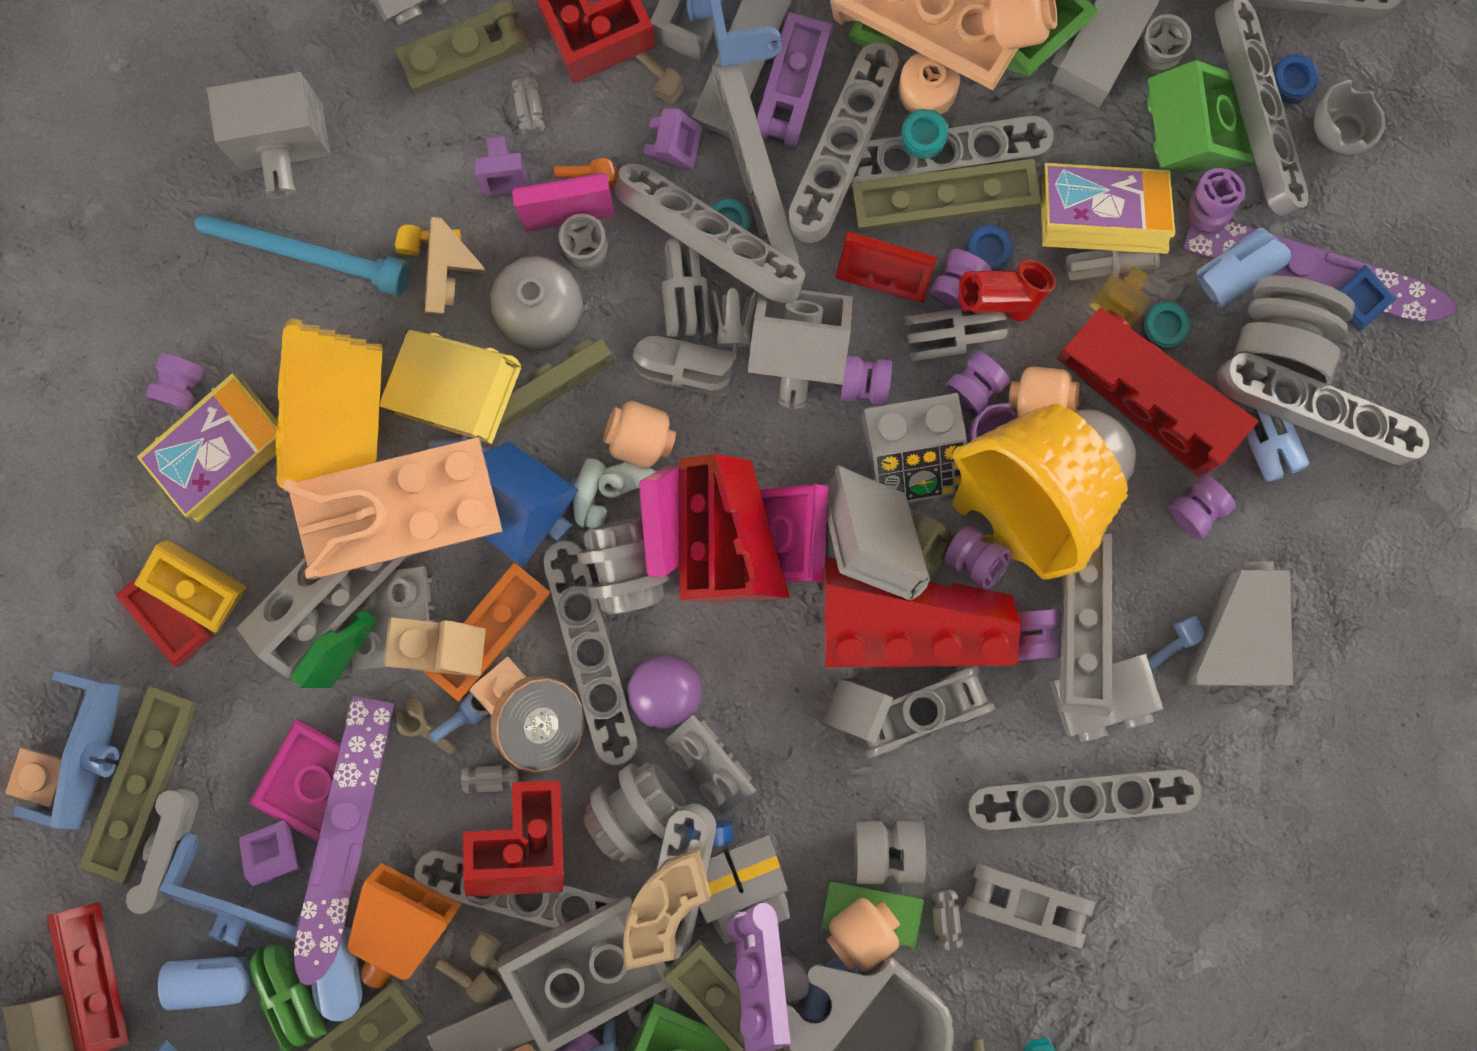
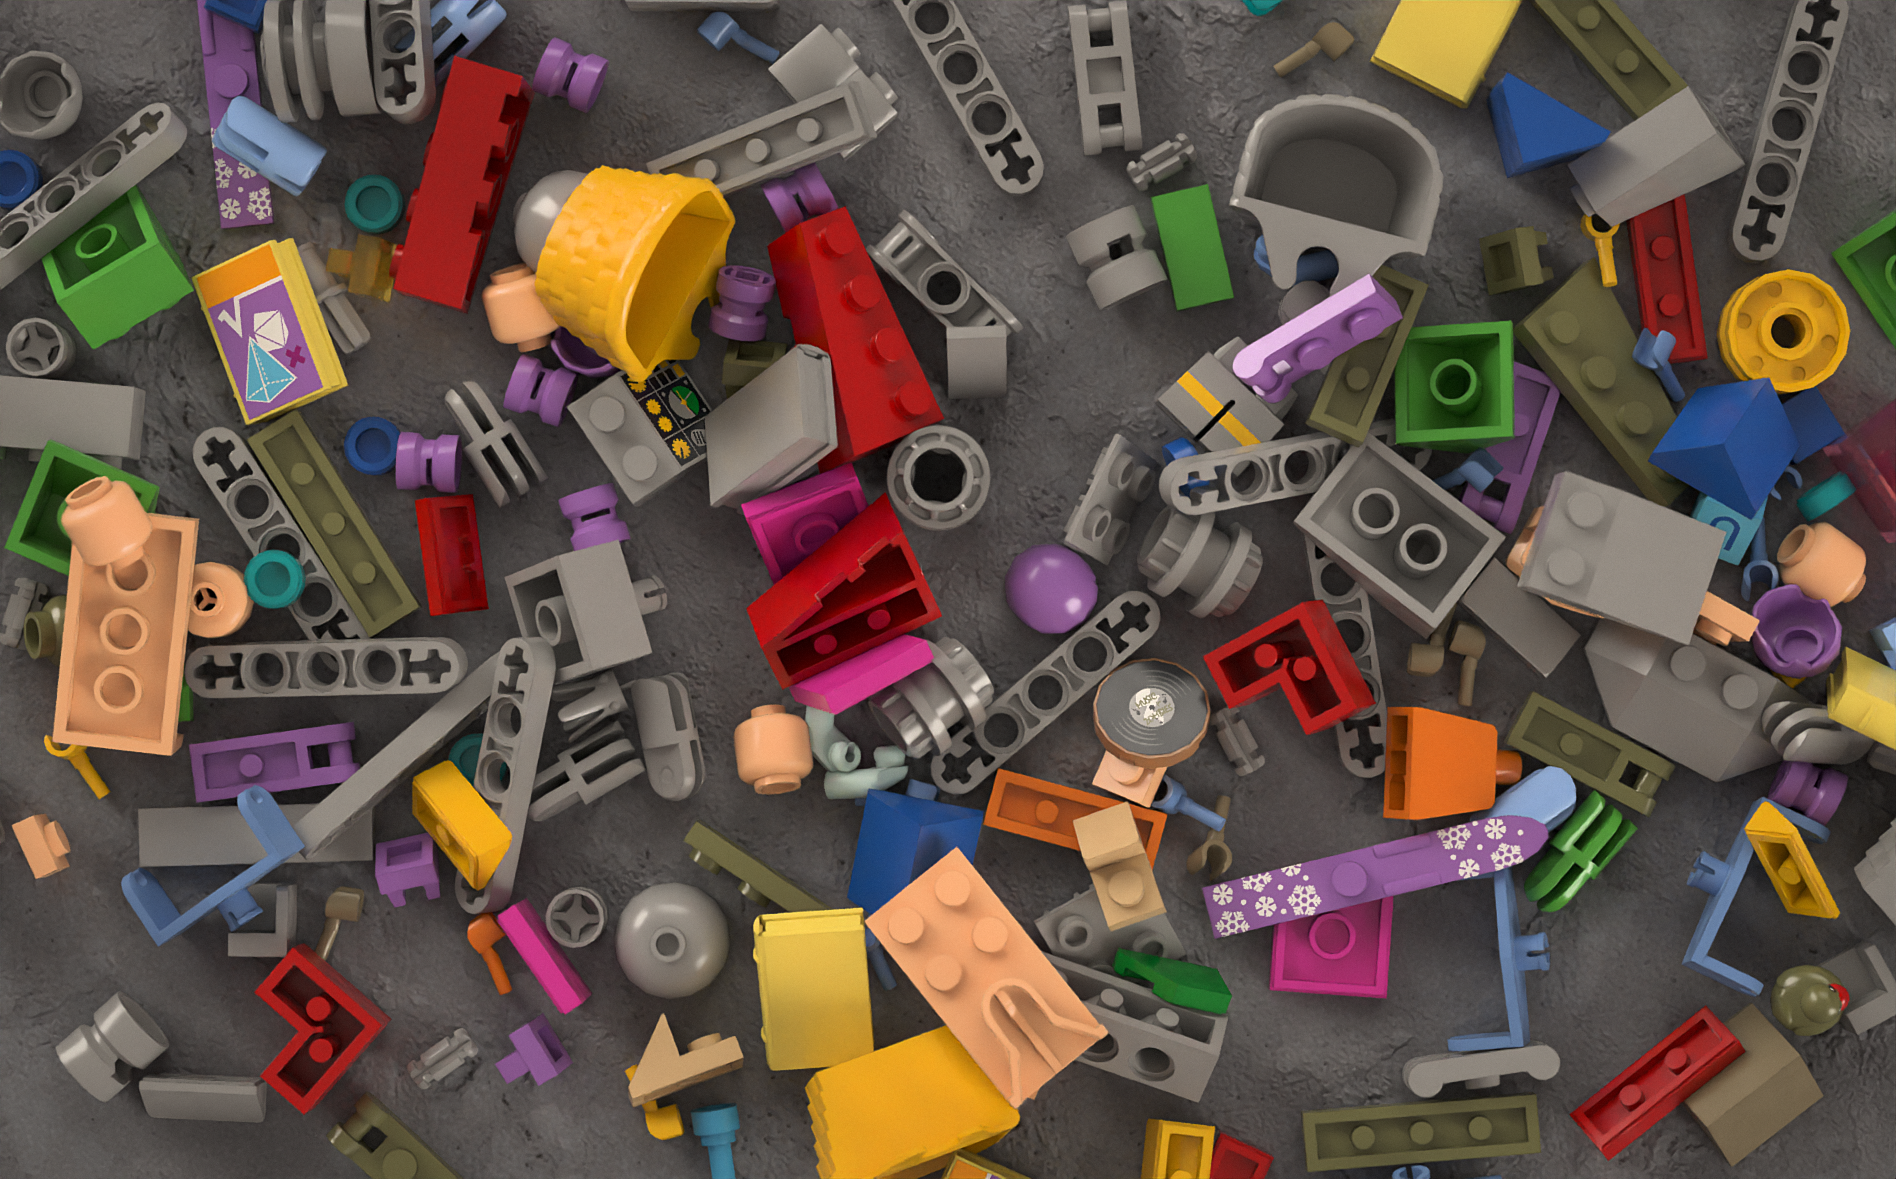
camera: 115 degrees left, 5 degrees up
(204, 982) = (1601, 951): light blue arm -> none
(268, 853) = (1429, 947): medium lavender tile -> none
(661, 907) = (1288, 479): tan tile -> none
(689, 187) = (460, 822): none -> yellow slope
(798, 618) = (942, 442): none -> light grey piece
(863, 934) = (1218, 246): light nougat head -> none
(1007, 291) = (421, 402): red piece -> none
(1215, 199) = (218, 210): medium lavender wheel -> none

